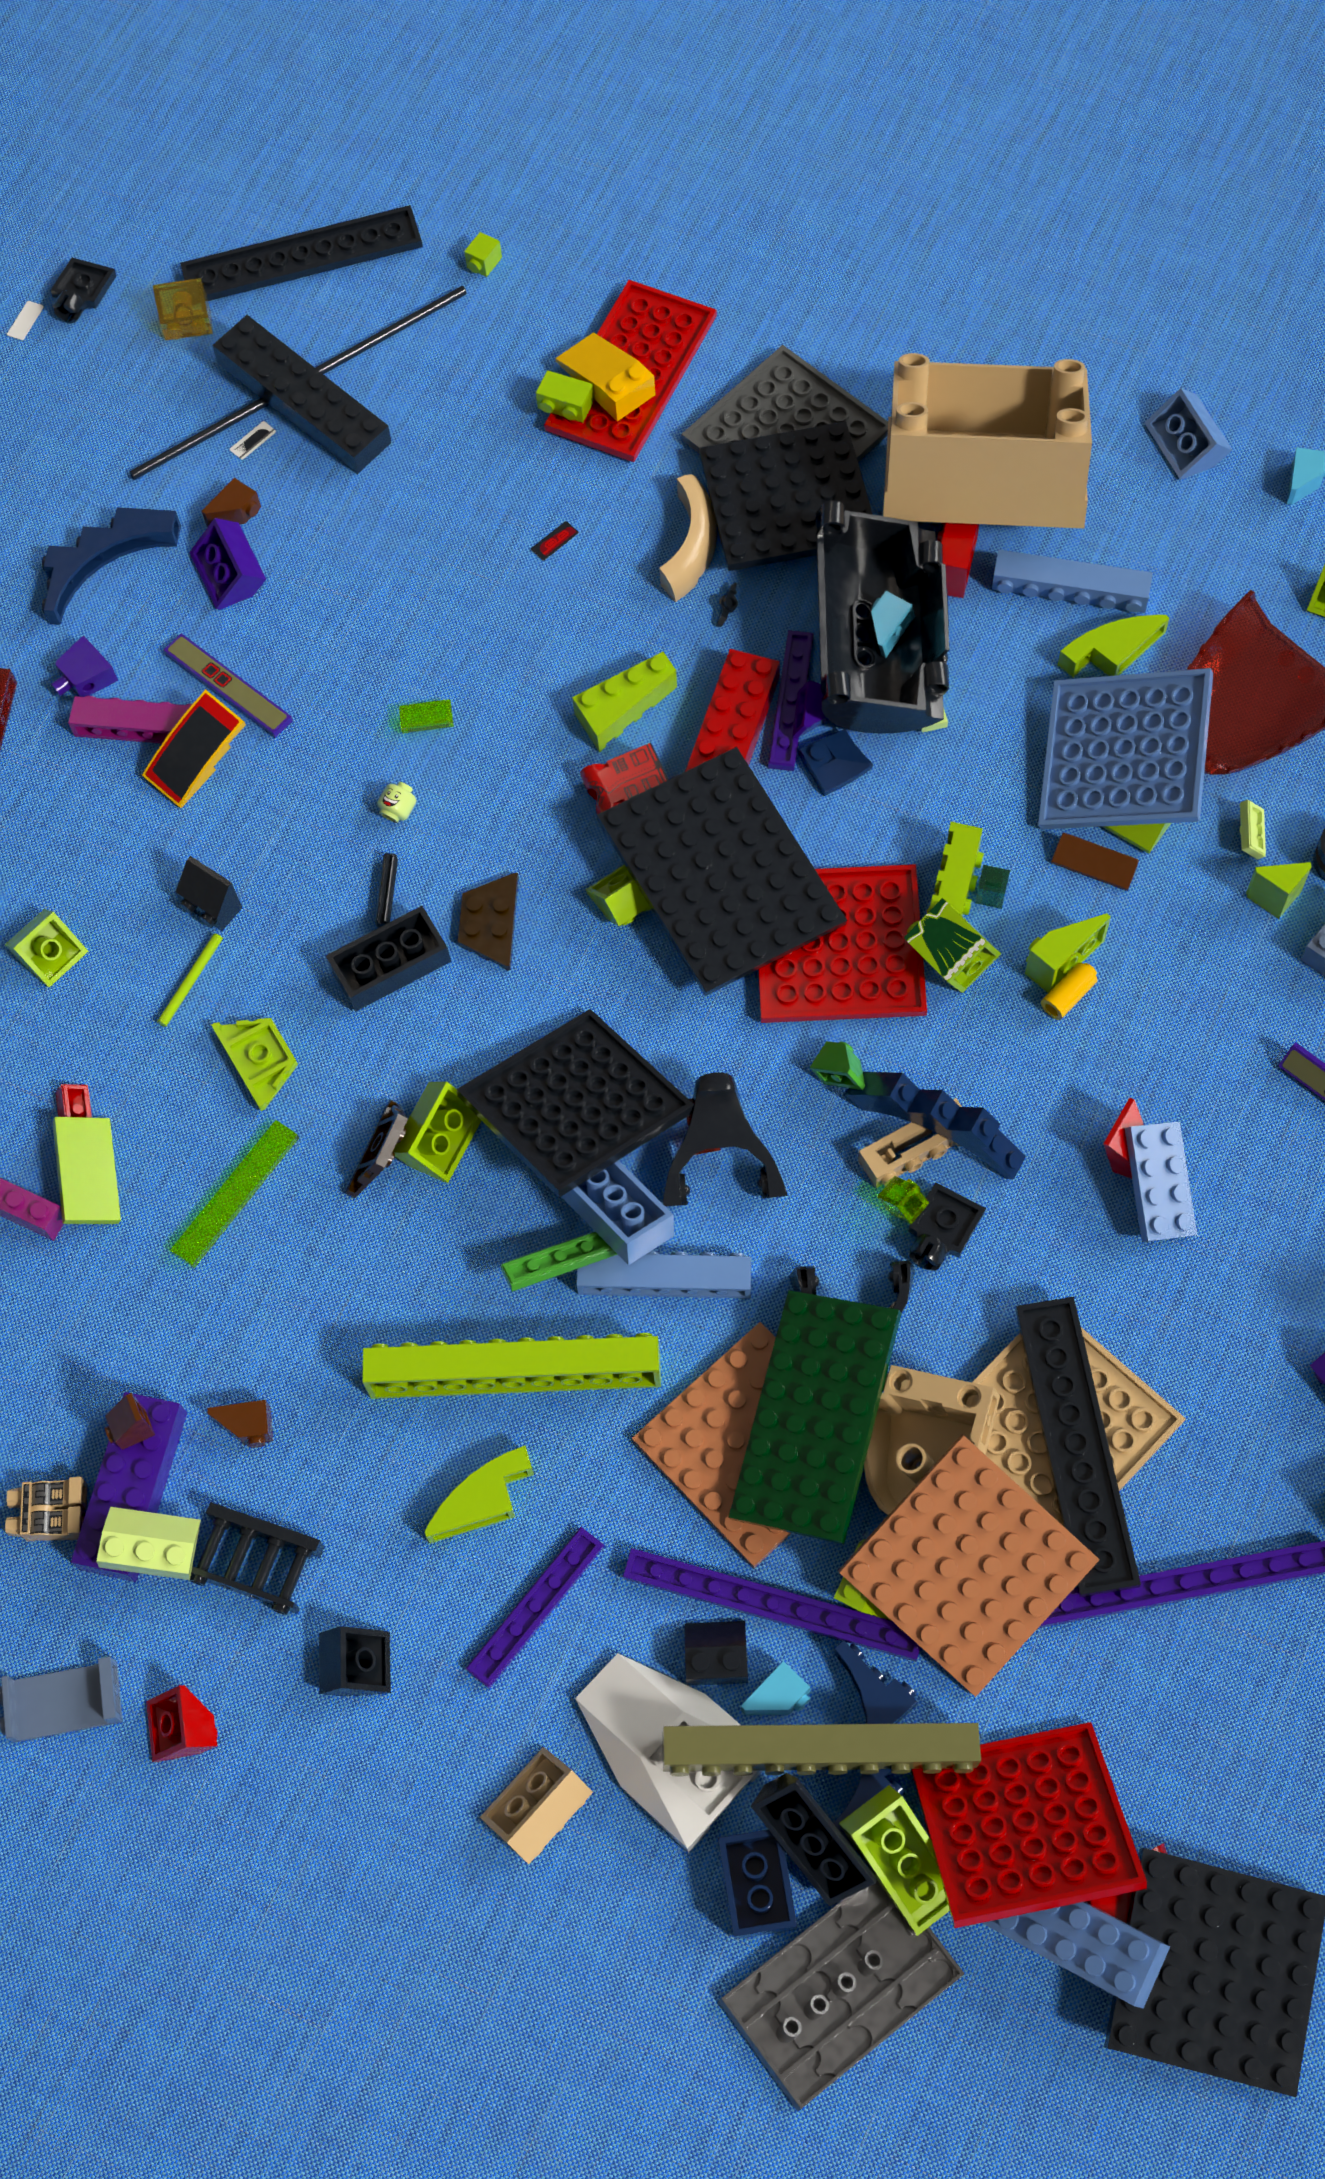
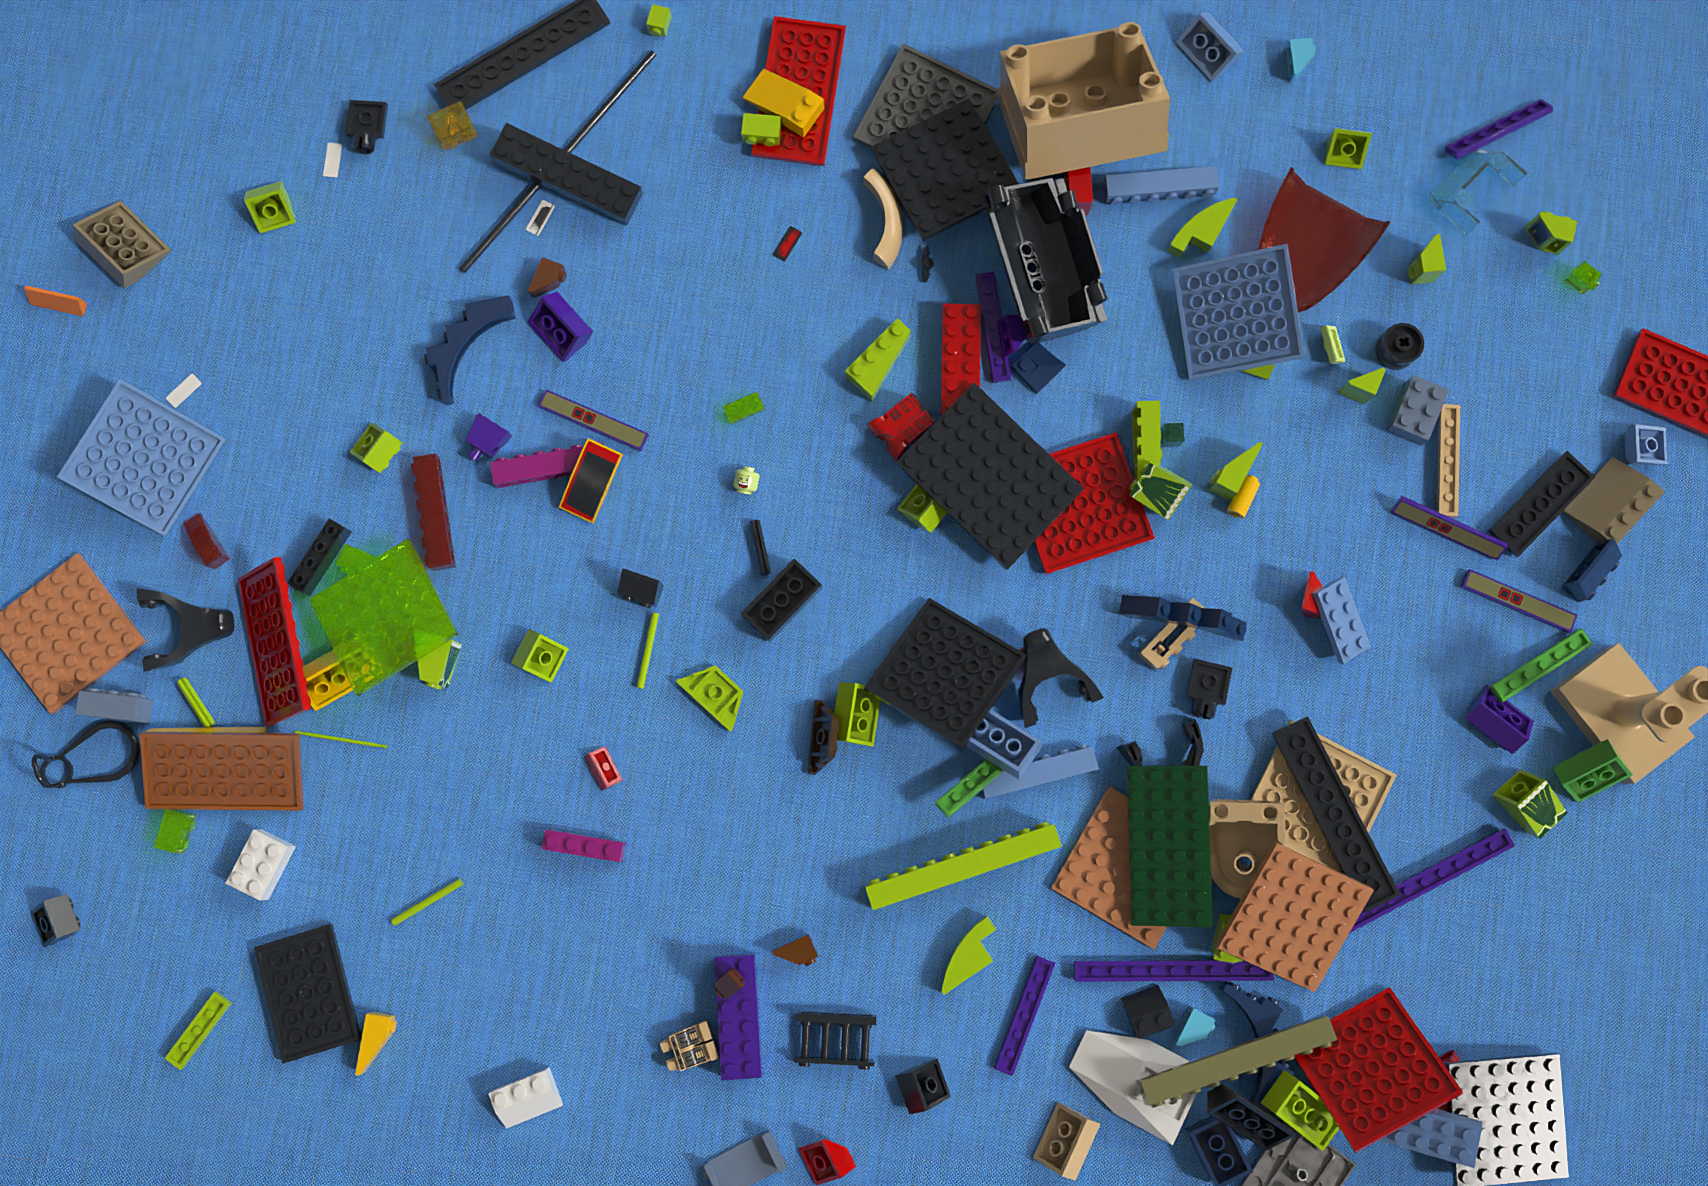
camera: 20 degrees left, 15 degrees up
(86, 1170) = (629, 809): lime tile -> none
(148, 1543) = (770, 1055): yellowish green slope -> none
(234, 1194) = (733, 795): clear neon green plate -> none
(489, 920) = (838, 550): dark brown wing -> none
(838, 1066) = (1110, 595): bright green slope -> none
(890, 619) = (1049, 253): medium azure slope -> none
(903, 1199) = (1178, 677): clear neon green brick -> none
(1095, 861) = (1234, 396): reddish brown slope -> none

